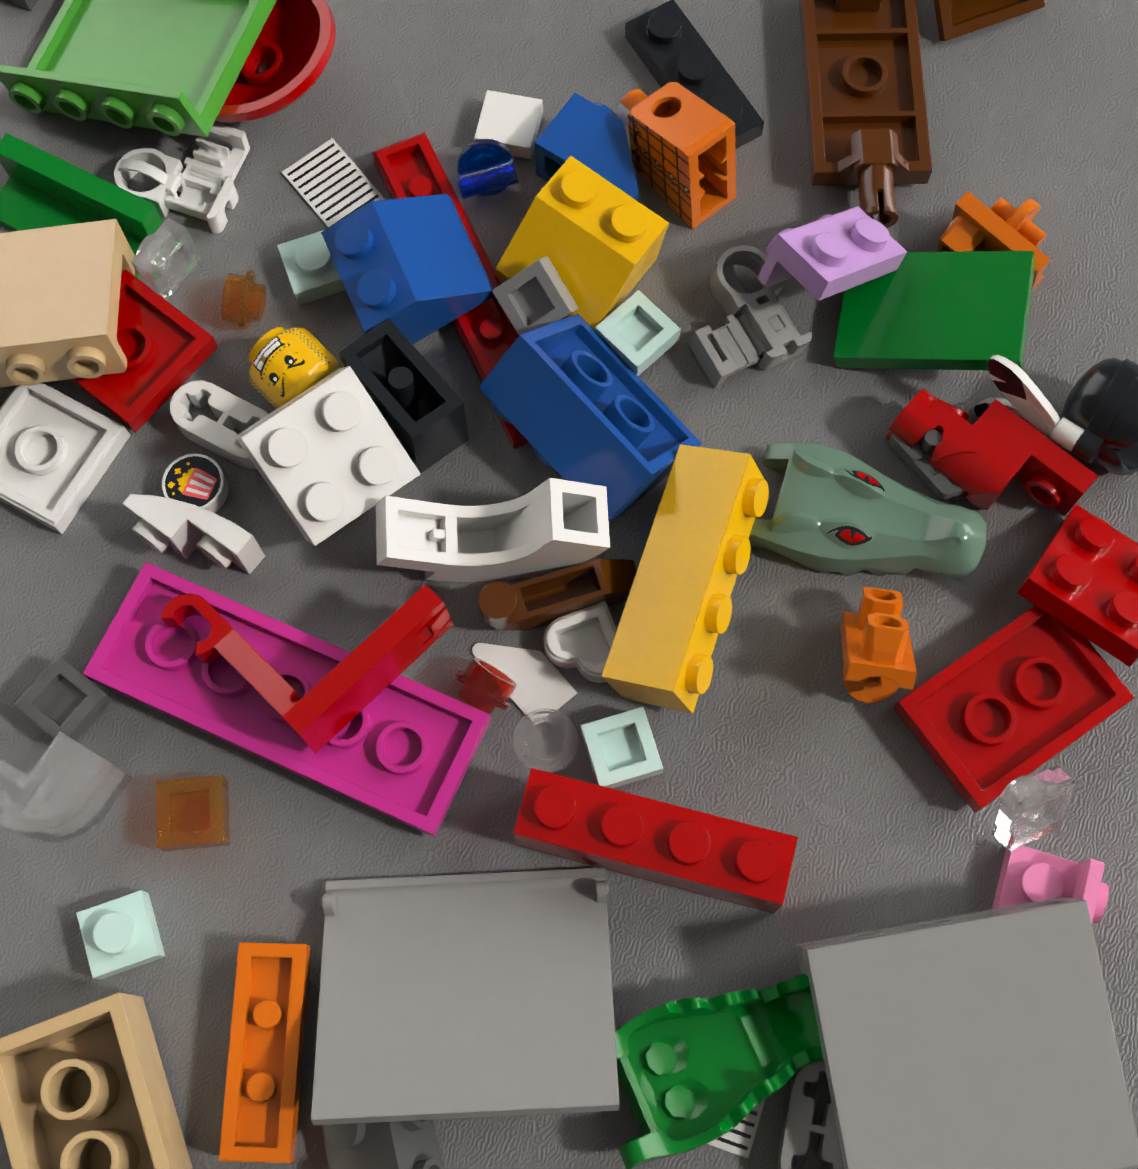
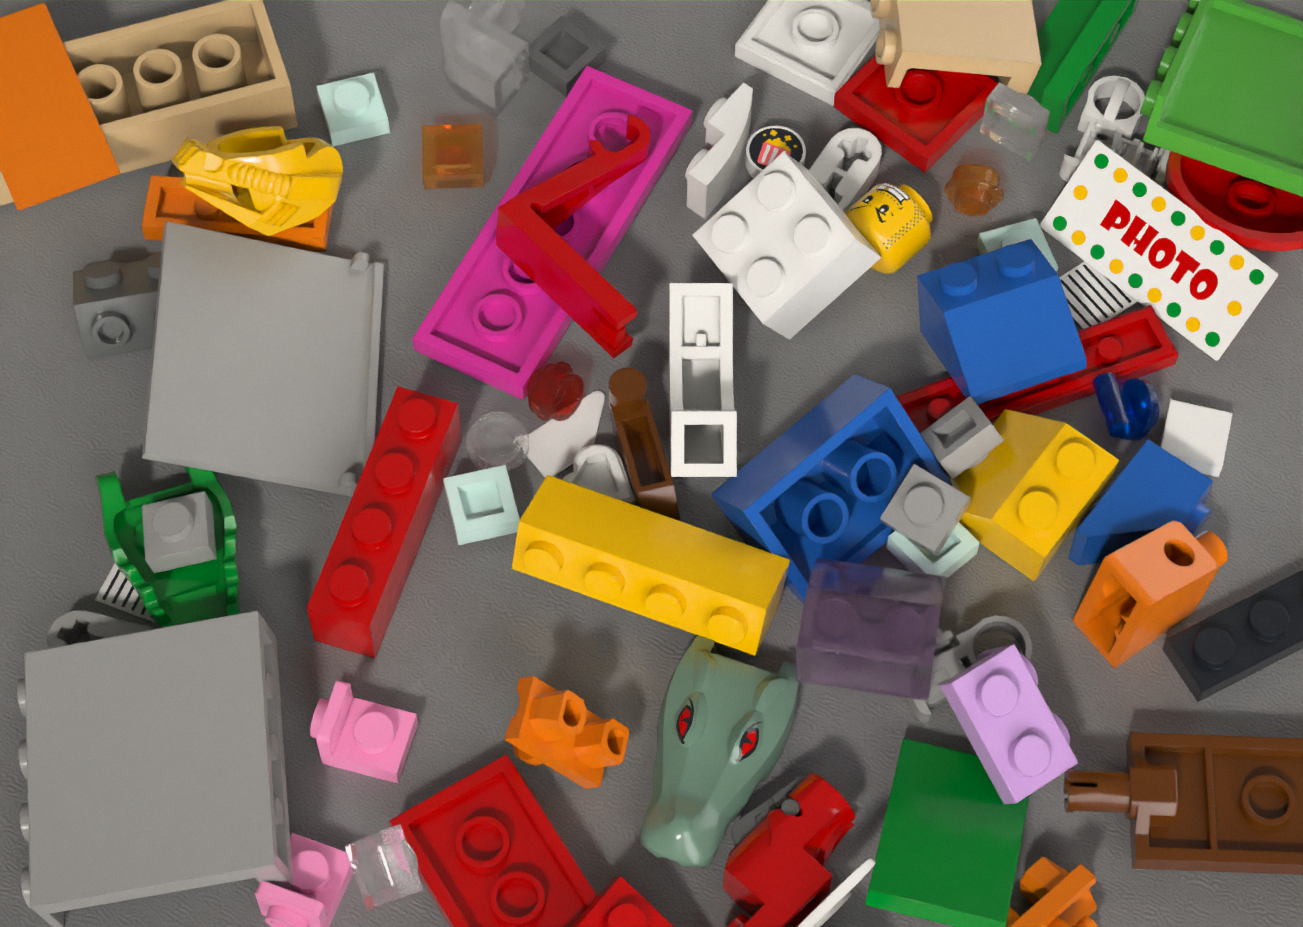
camera: 90 degrees right, 10 degrees down
(247, 1013) = (275, 178): none -> yellow helmet
(319, 137) = (1158, 250): none -> white sticker
(408, 394) = (851, 317): black slope -> none
(619, 326) = (925, 509): none -> light grey plate
(691, 1062) = (179, 532): none -> light grey plate
(744, 367) = (870, 629): none -> clear purple slope
(882, 847) = (362, 734): none -> bright pink bracket

